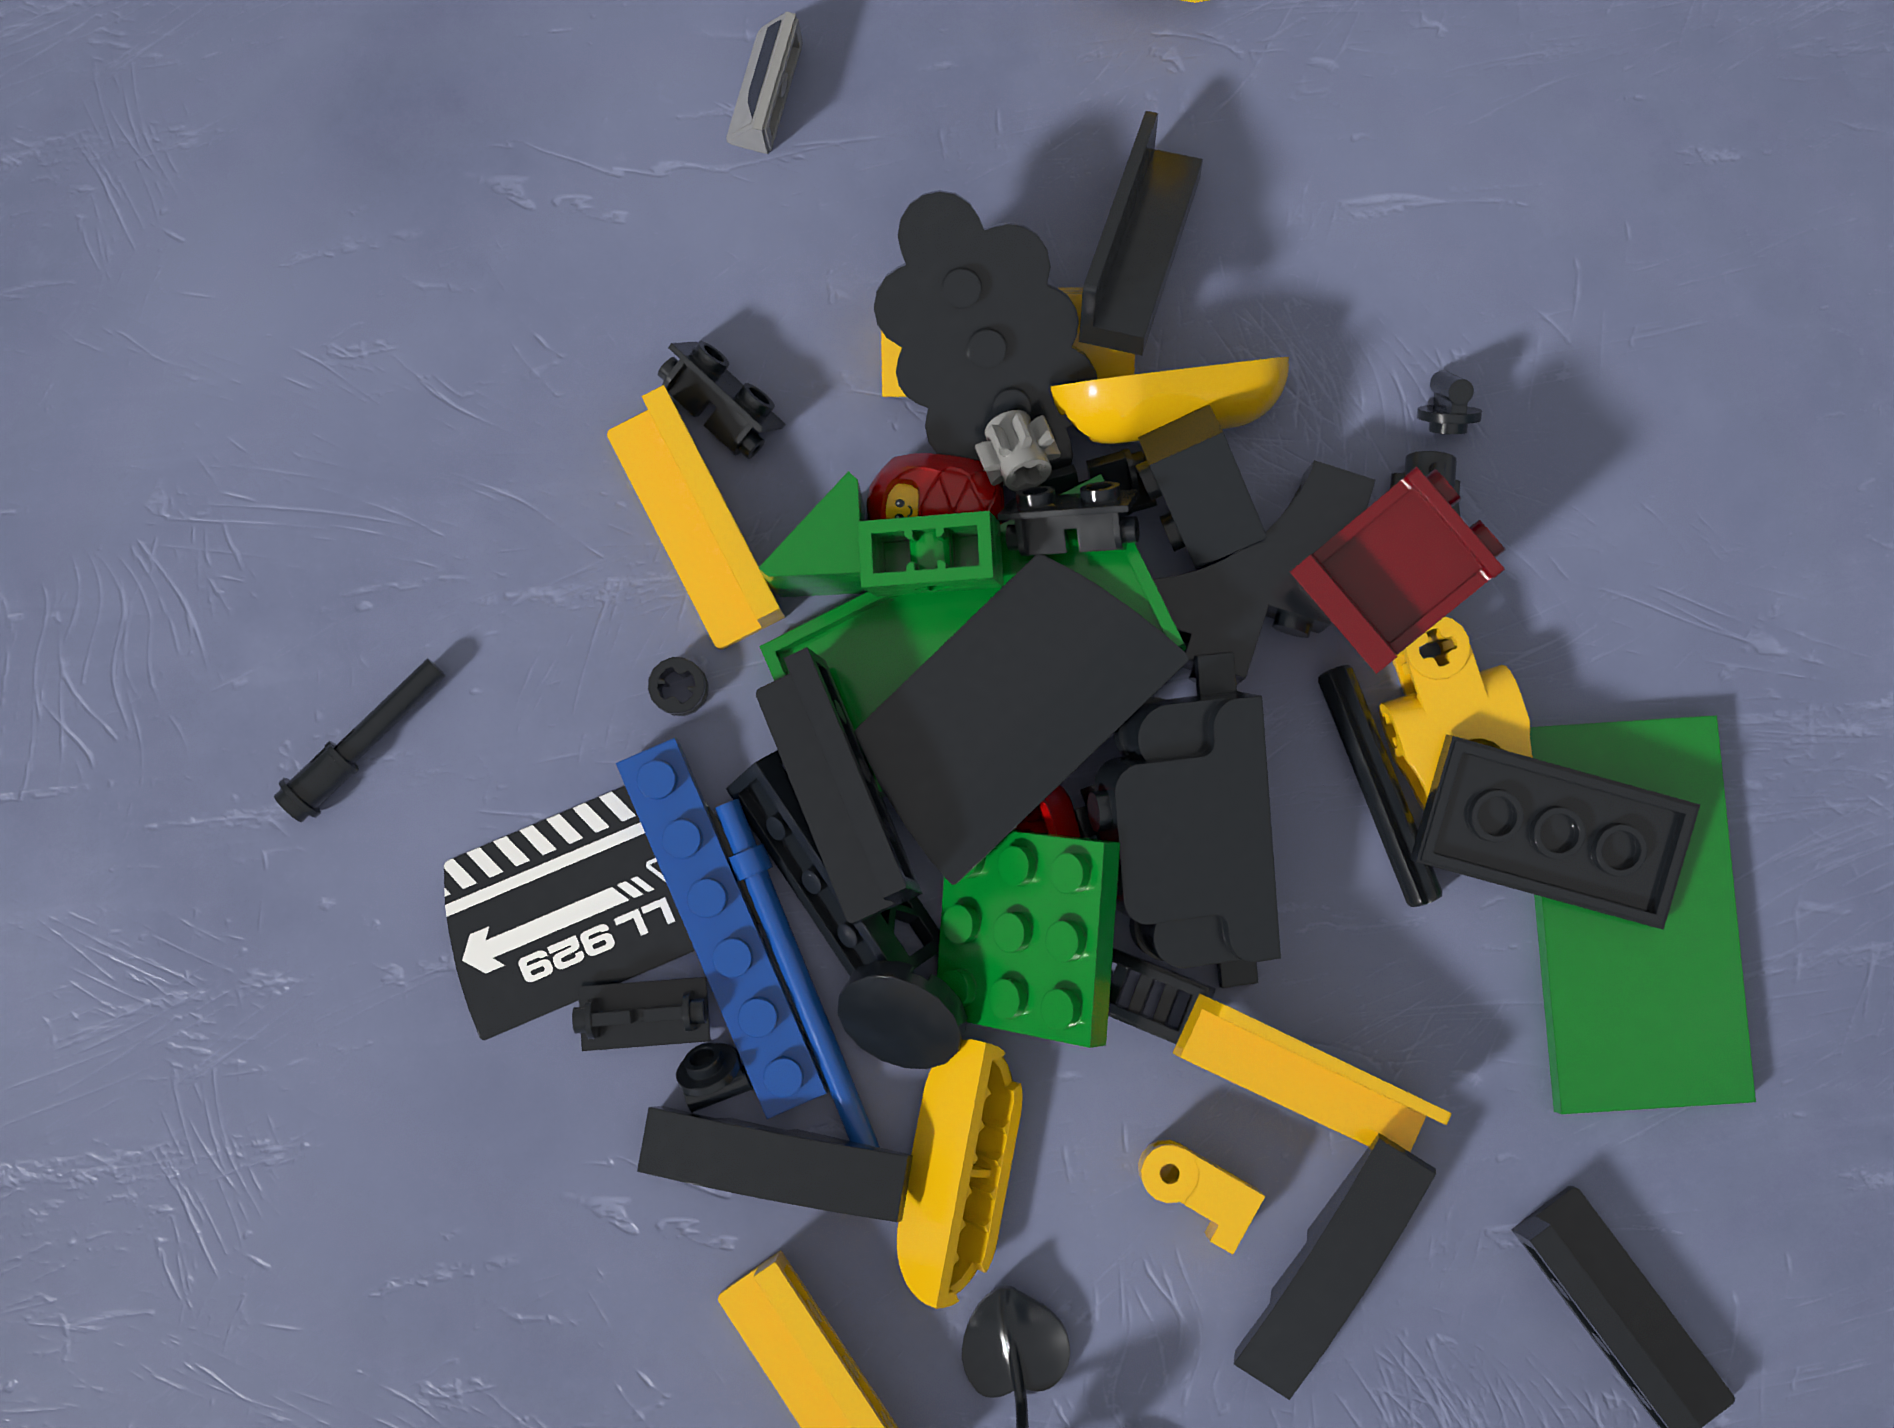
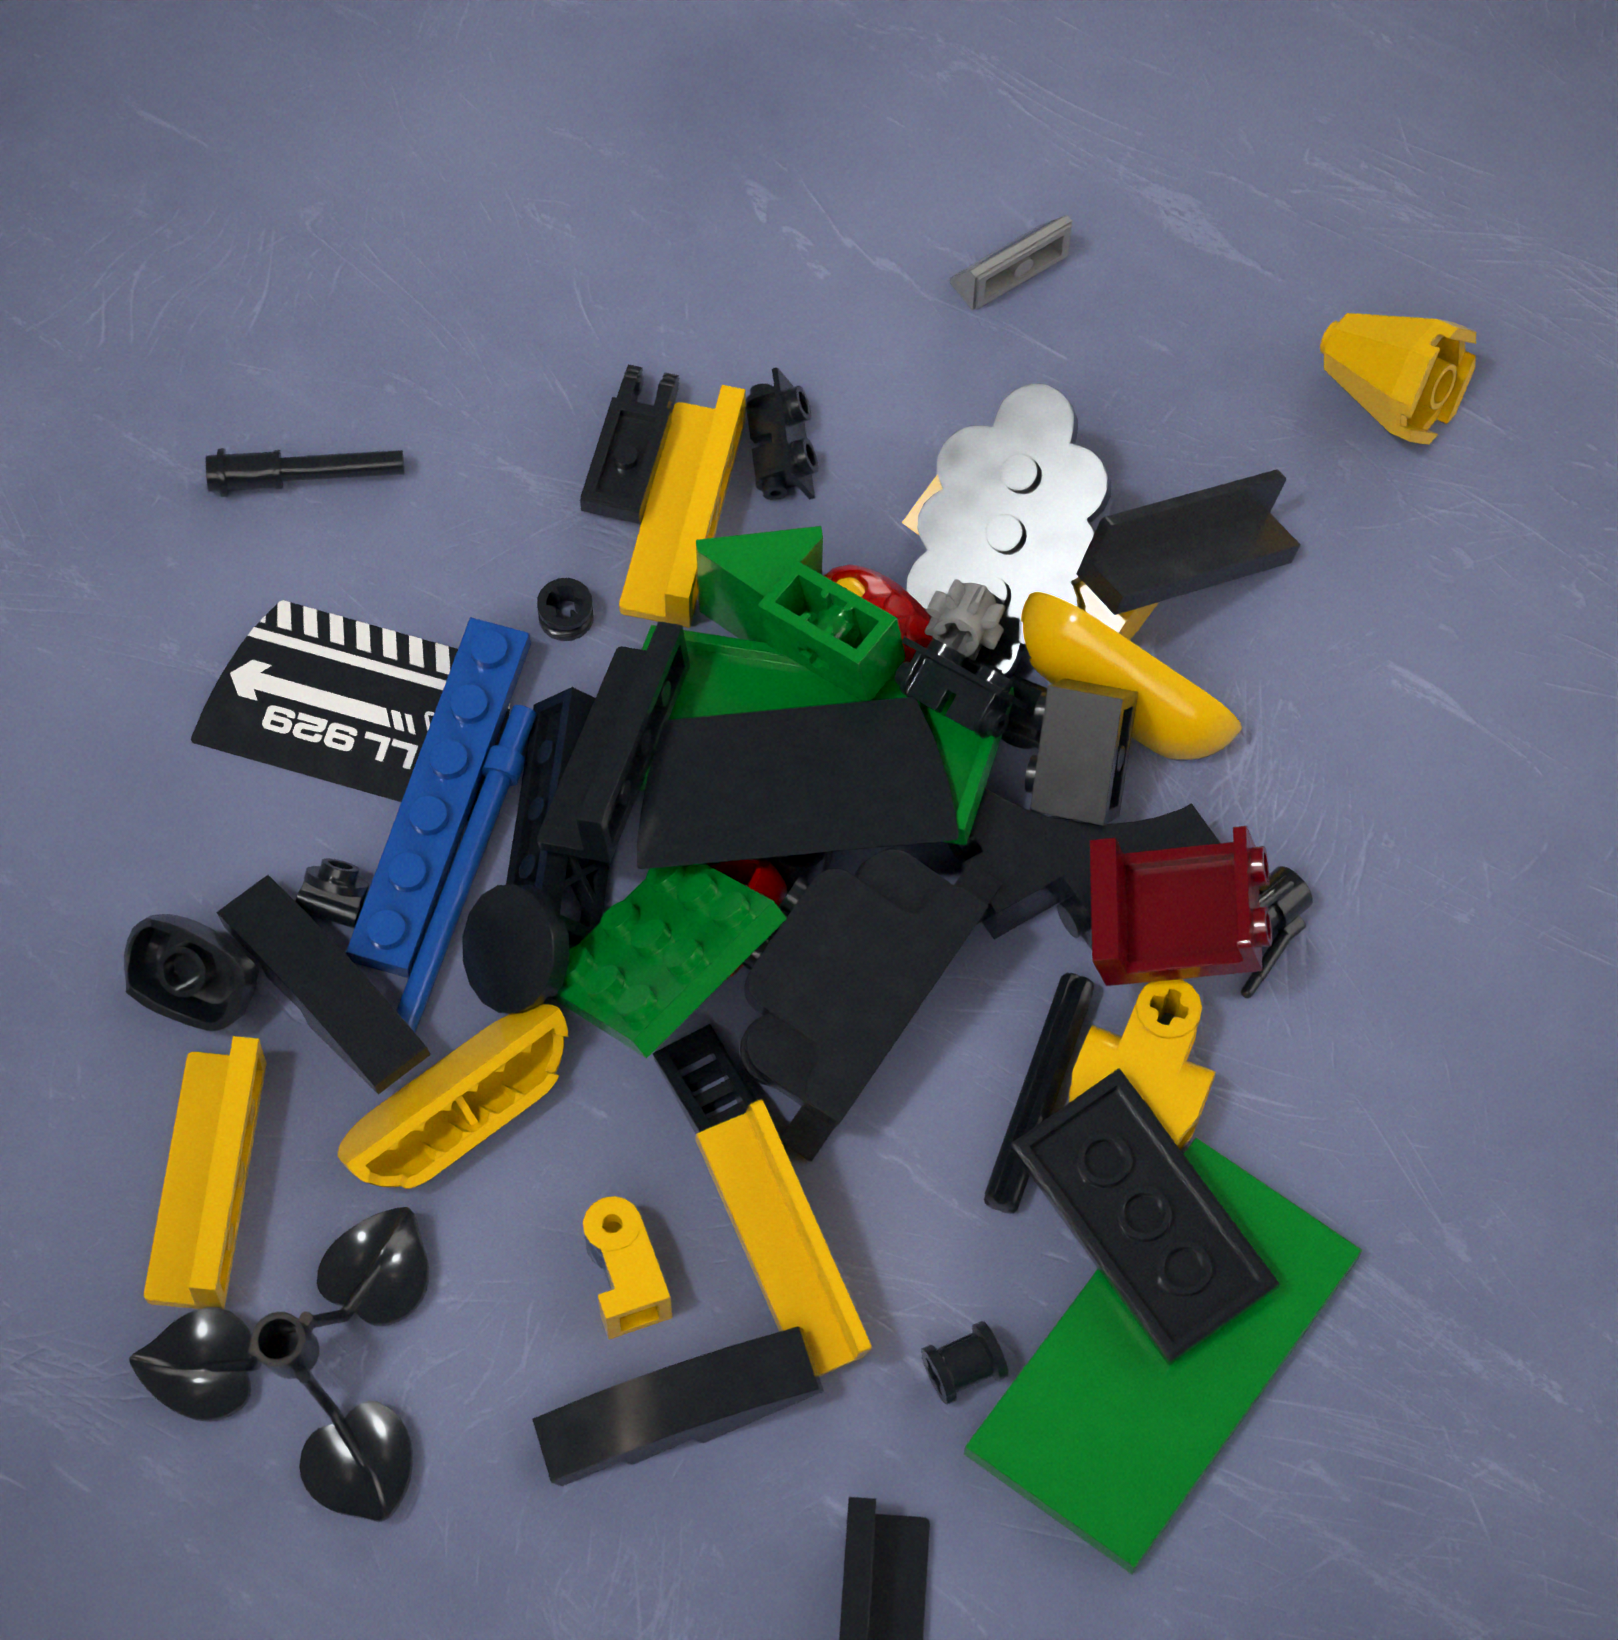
camera: 35 degrees right, 20 degrees down
(608, 506) = (629, 449): none -> black hinge
(642, 1014) = (323, 809): black hinge -> none
(664, 1245) = (188, 972): none -> black piece
(1450, 409) = (1336, 867): black plate -> none
(1508, 1050) = (964, 1362): none -> black bush

